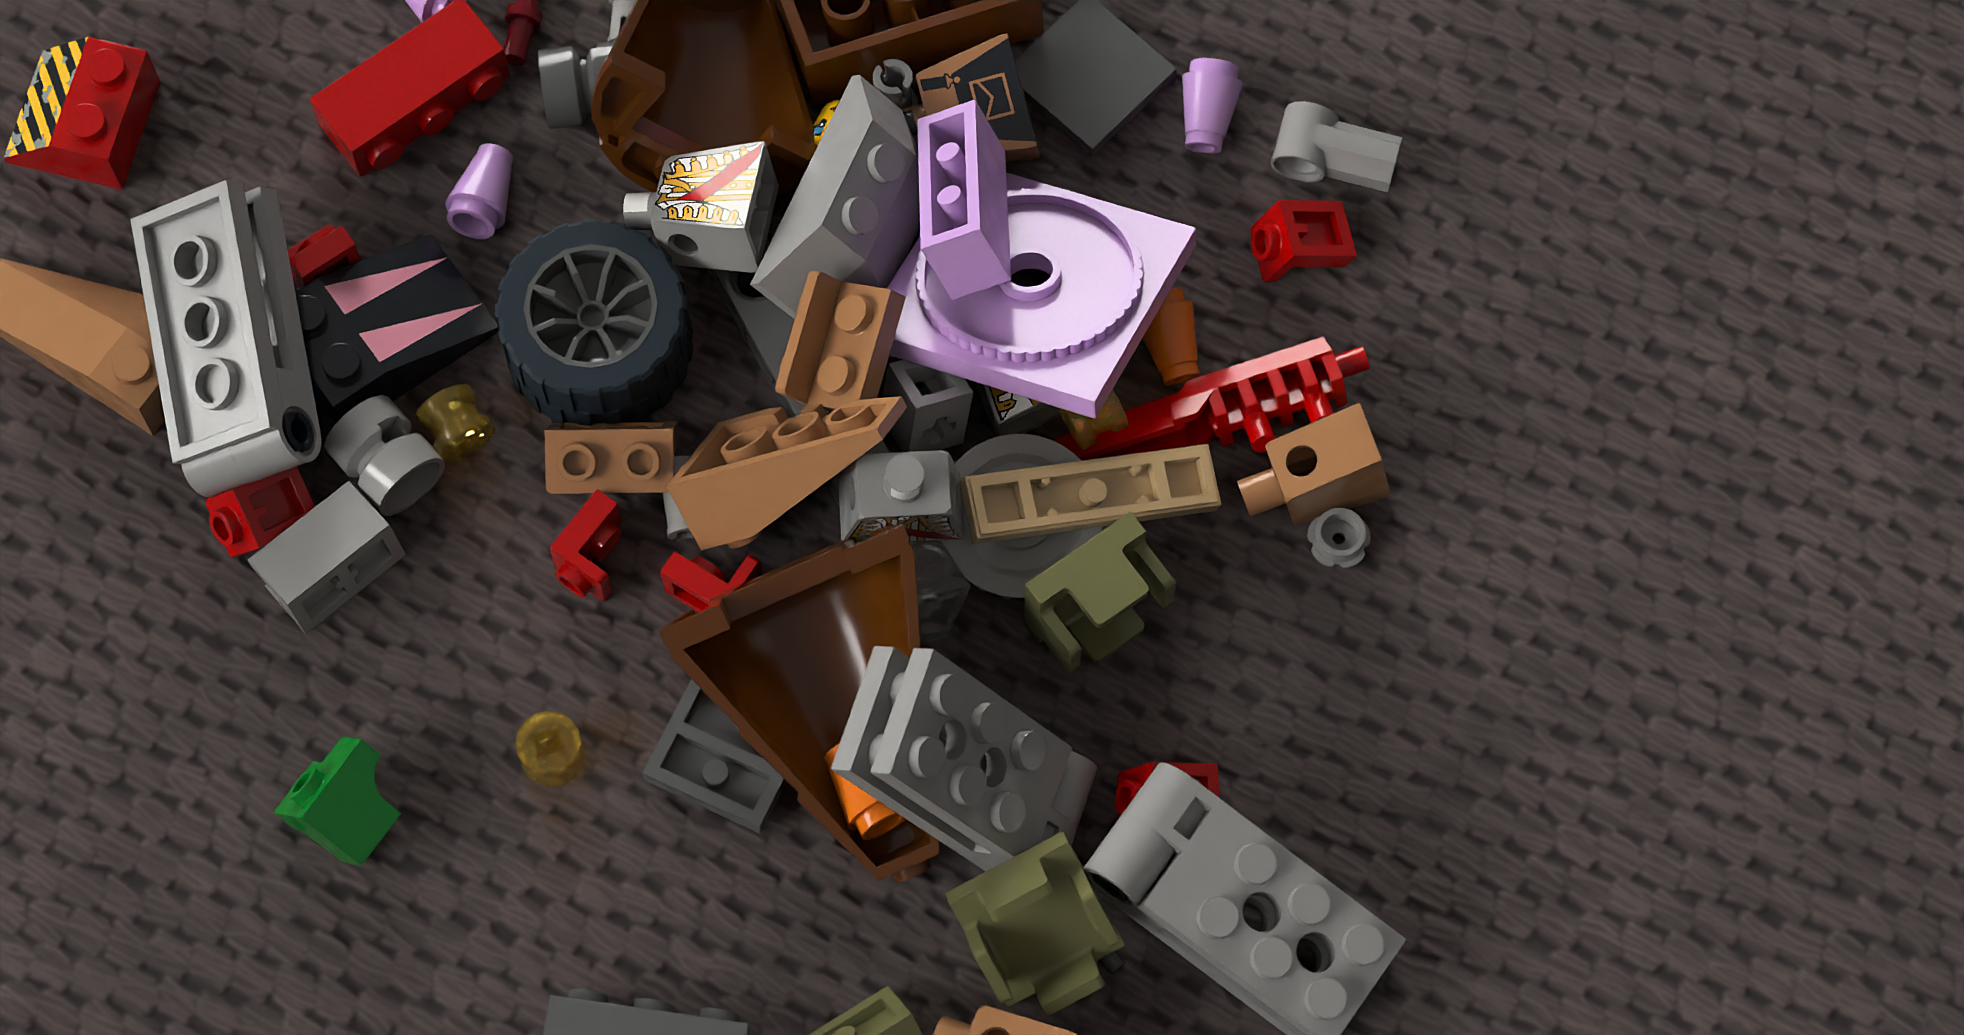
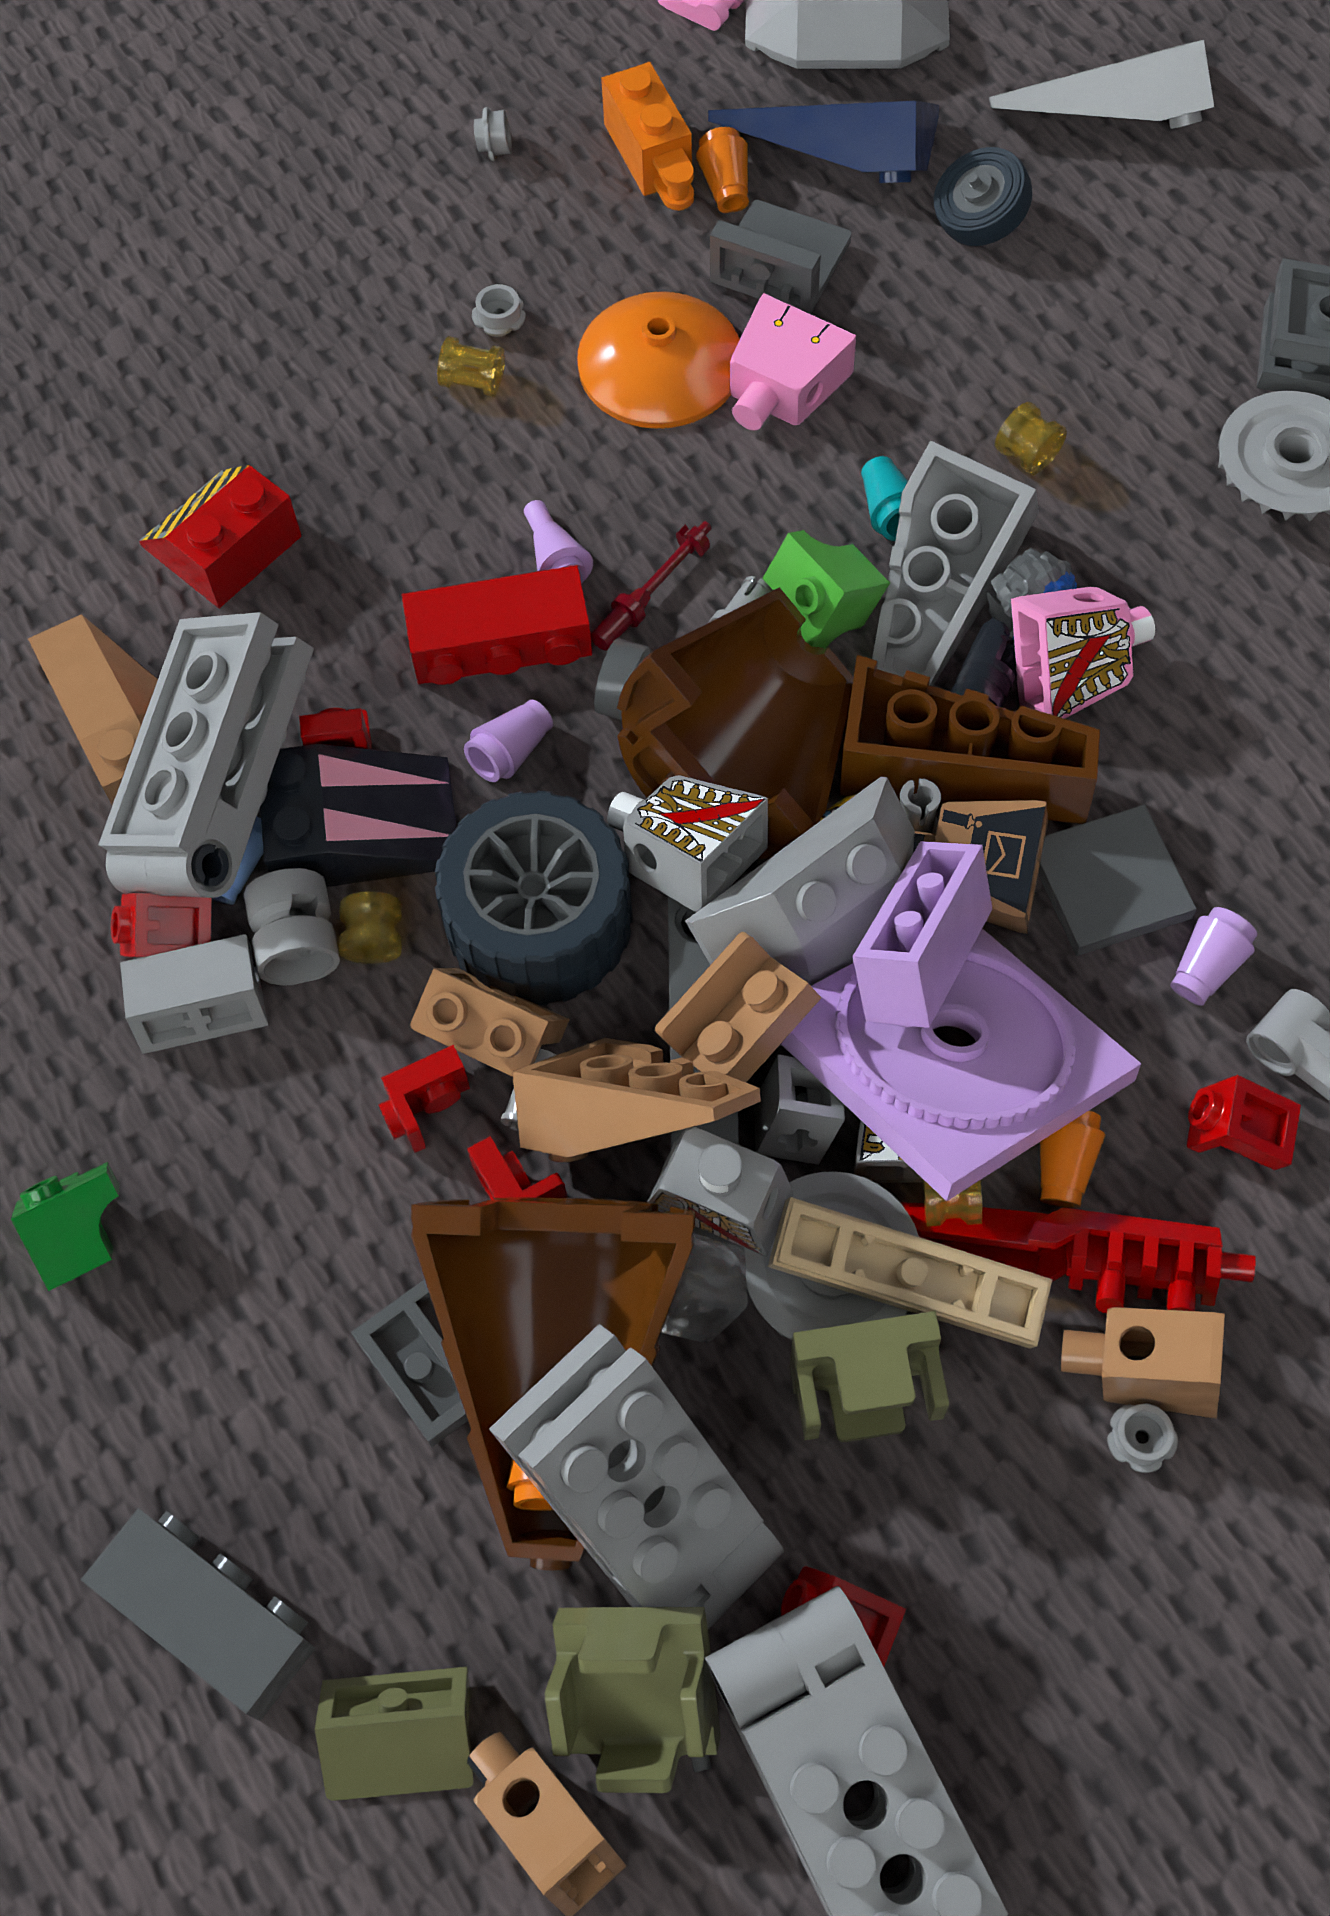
camera: 30 degrees right, 5 degrees down
(556, 761) = (292, 1279): clear yellow wheel -> none

